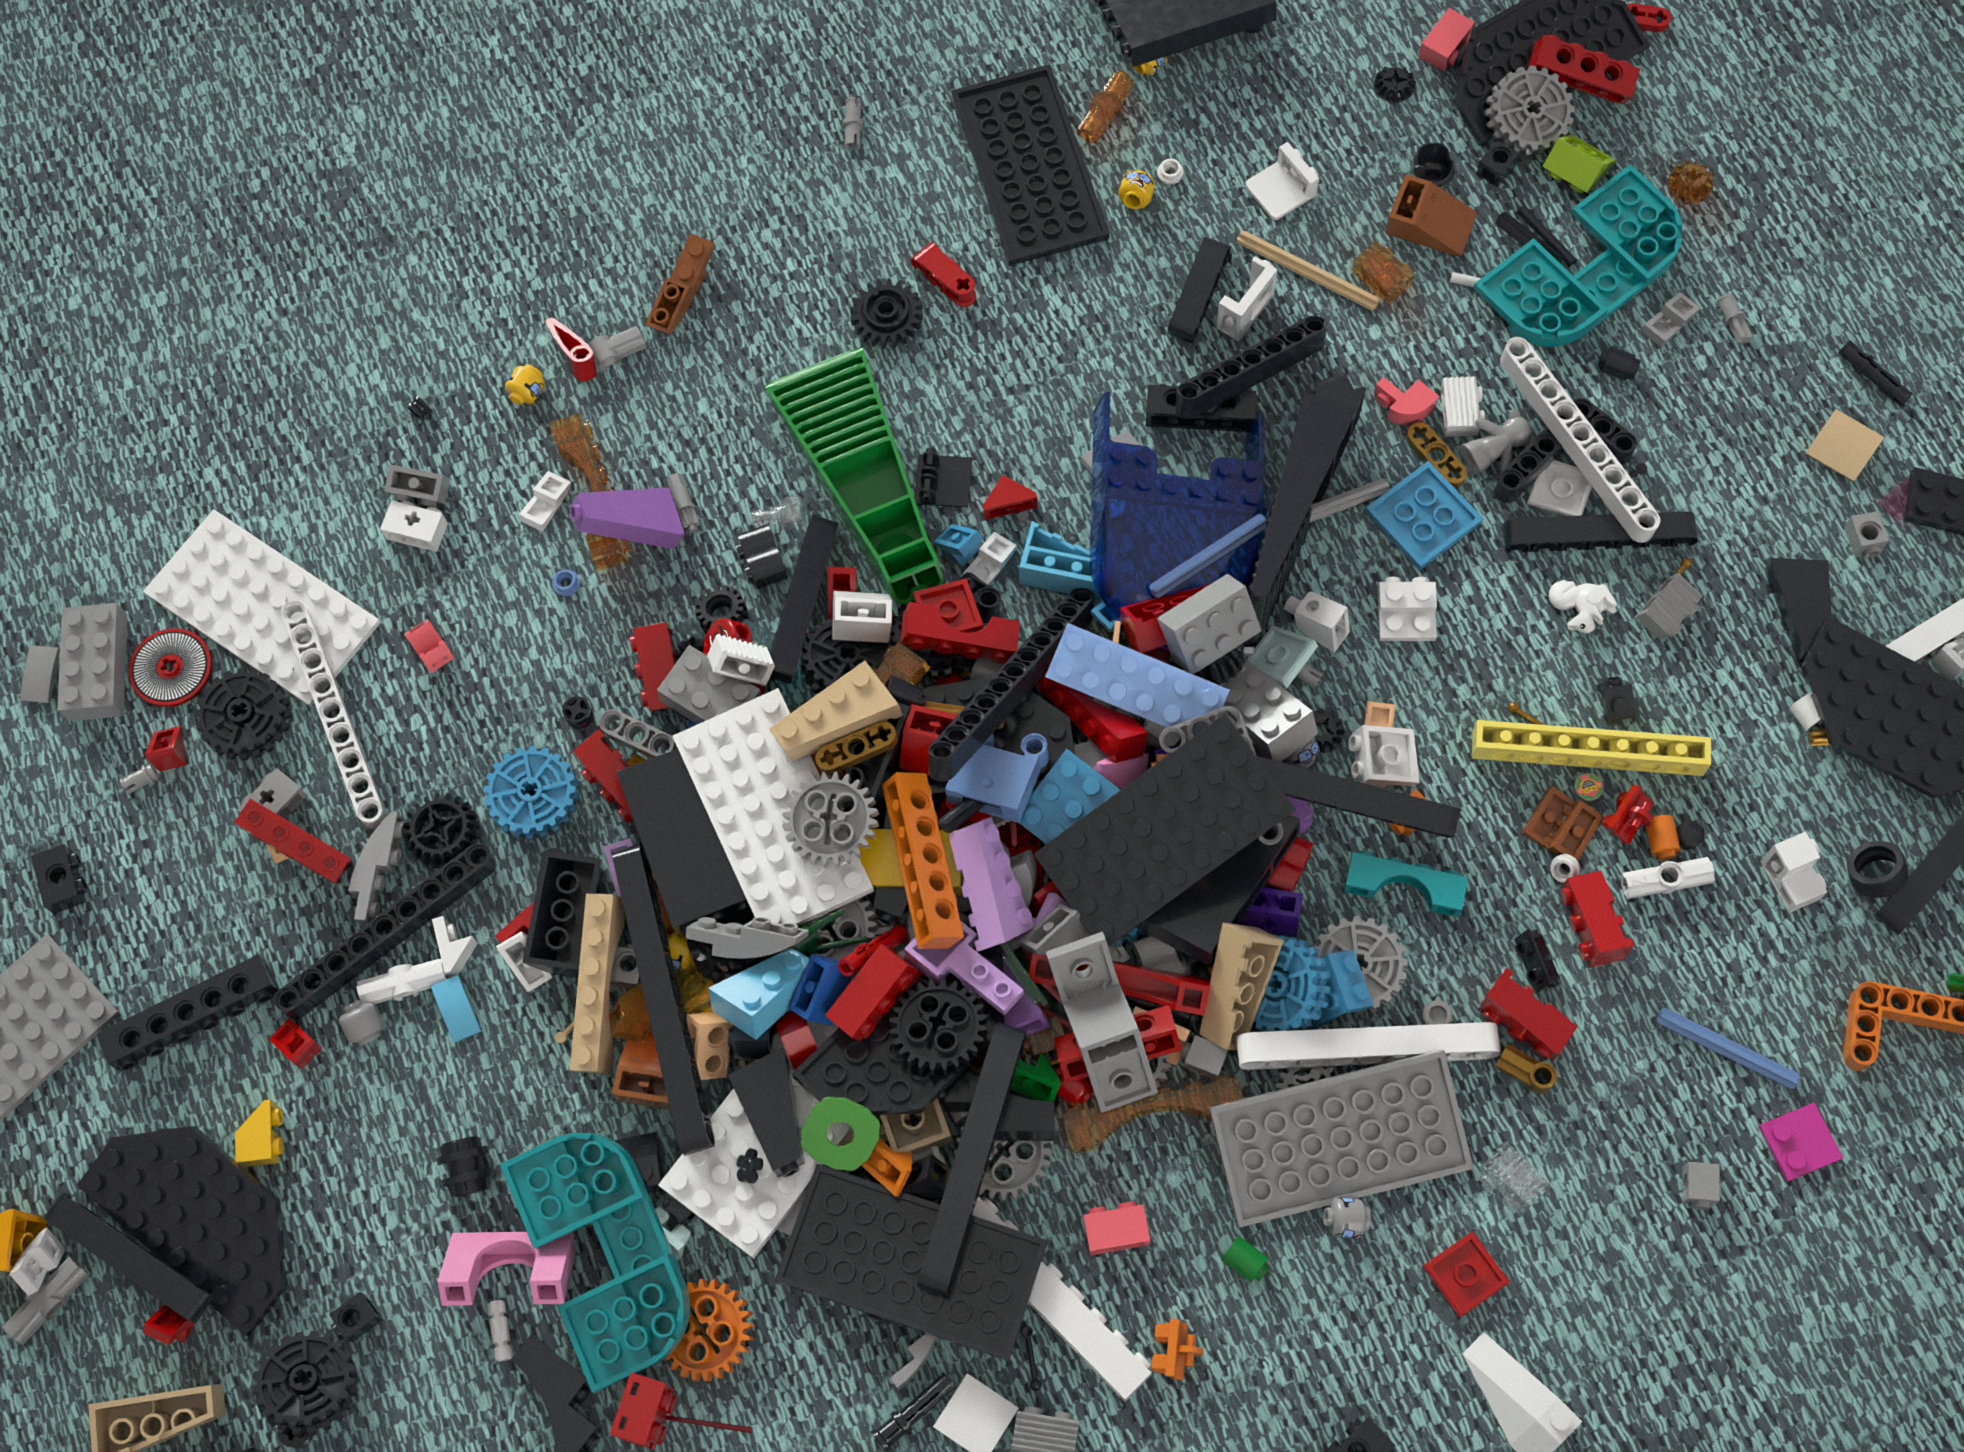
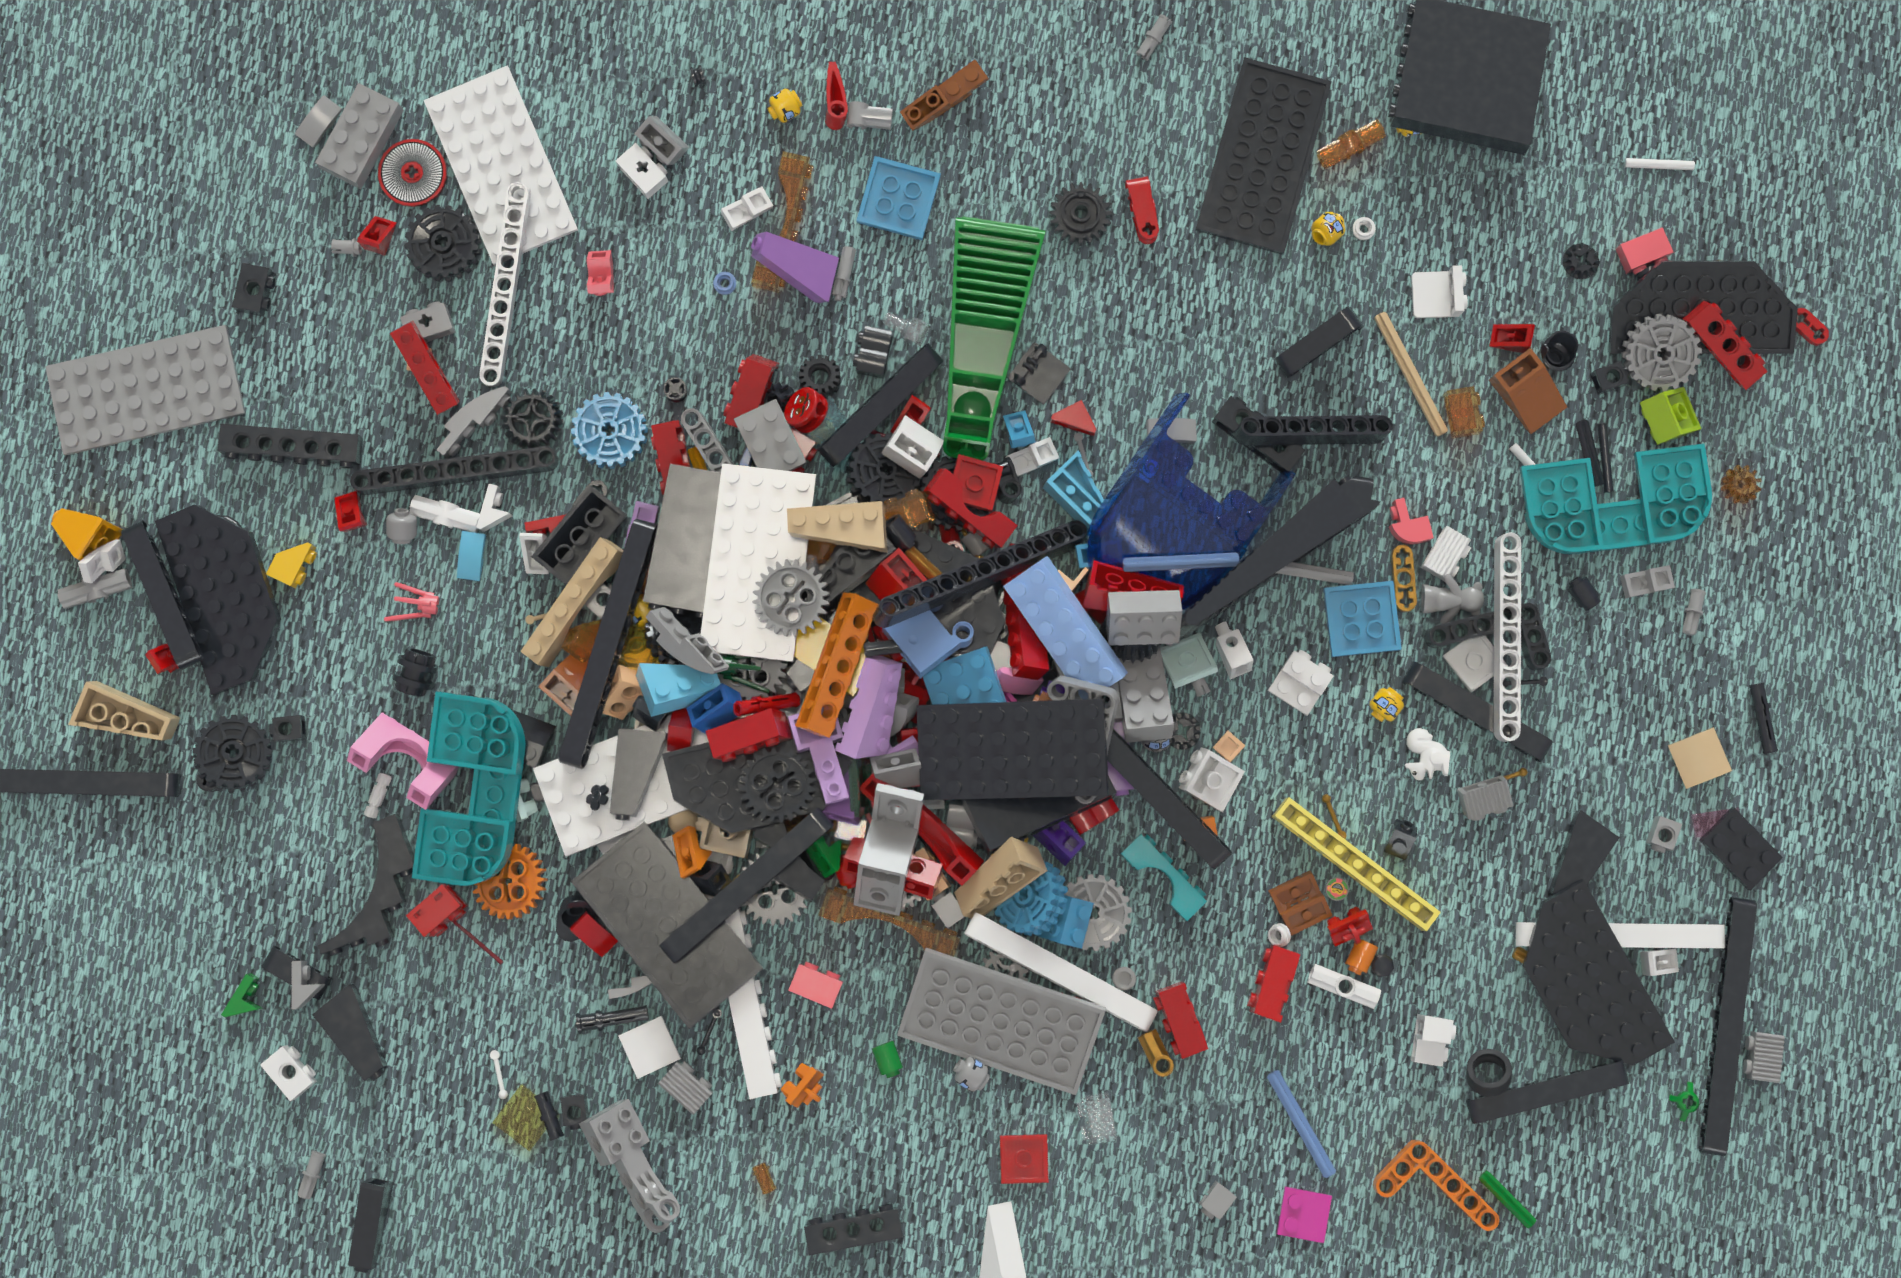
camera: 25 degrees right, 15 degrees up
(436, 1088) = (426, 604): none -> coral plant
(694, 403) = (898, 198): none -> dark azure plate
(740, 660) = (804, 433): white brick -> none
(804, 1323) = (570, 911): none -> black piece
(834, 1110) = (669, 796): bright green piece -> none
(836, 1328) = (593, 934): none -> red slope
(845, 742) = (822, 560): pearl gold beam -> none
(1237, 317) = (1329, 385): white window -> none
(1381, 180) = (1512, 337): none -> red slope
(1507, 578) = (1386, 704): none -> yellow head
(1531, 948) = (1217, 974): black hinge -> none

